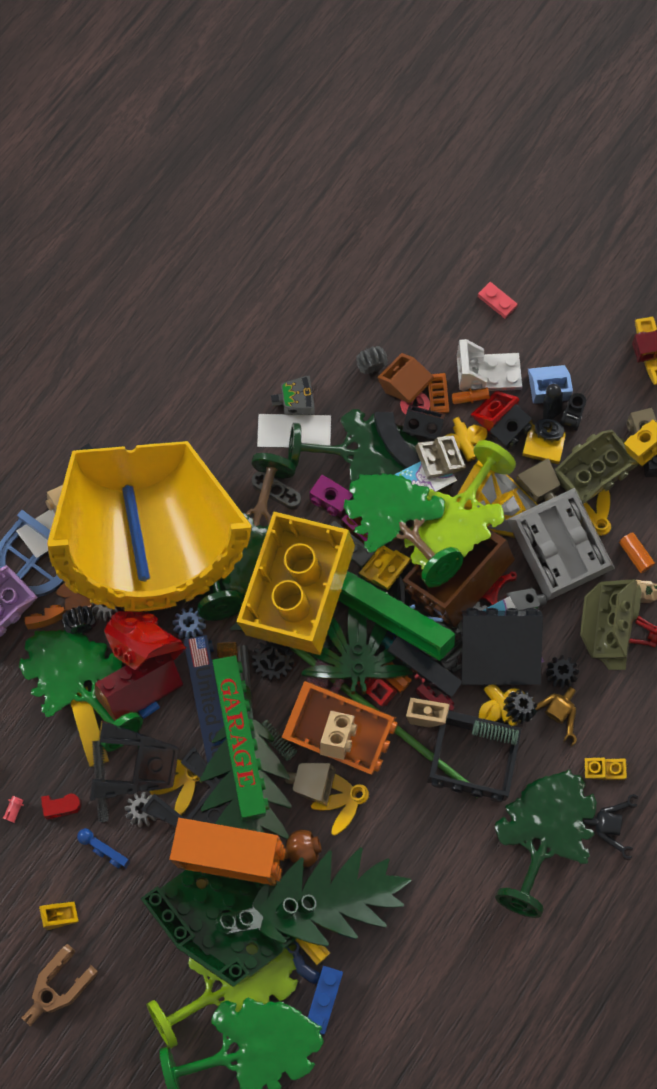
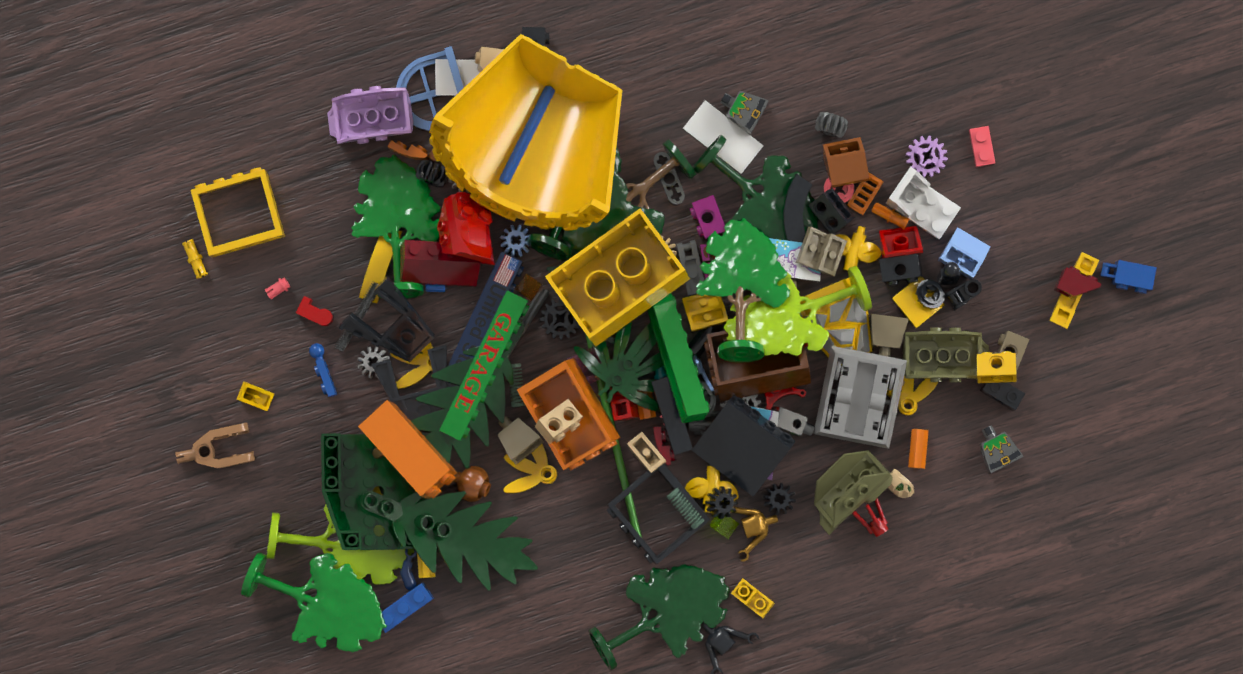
camera: 45 degrees right, 15 degrees up
(468, 328) = (934, 161): none -> lavender gear
(535, 728) = (724, 526): none -> clear neon green slope

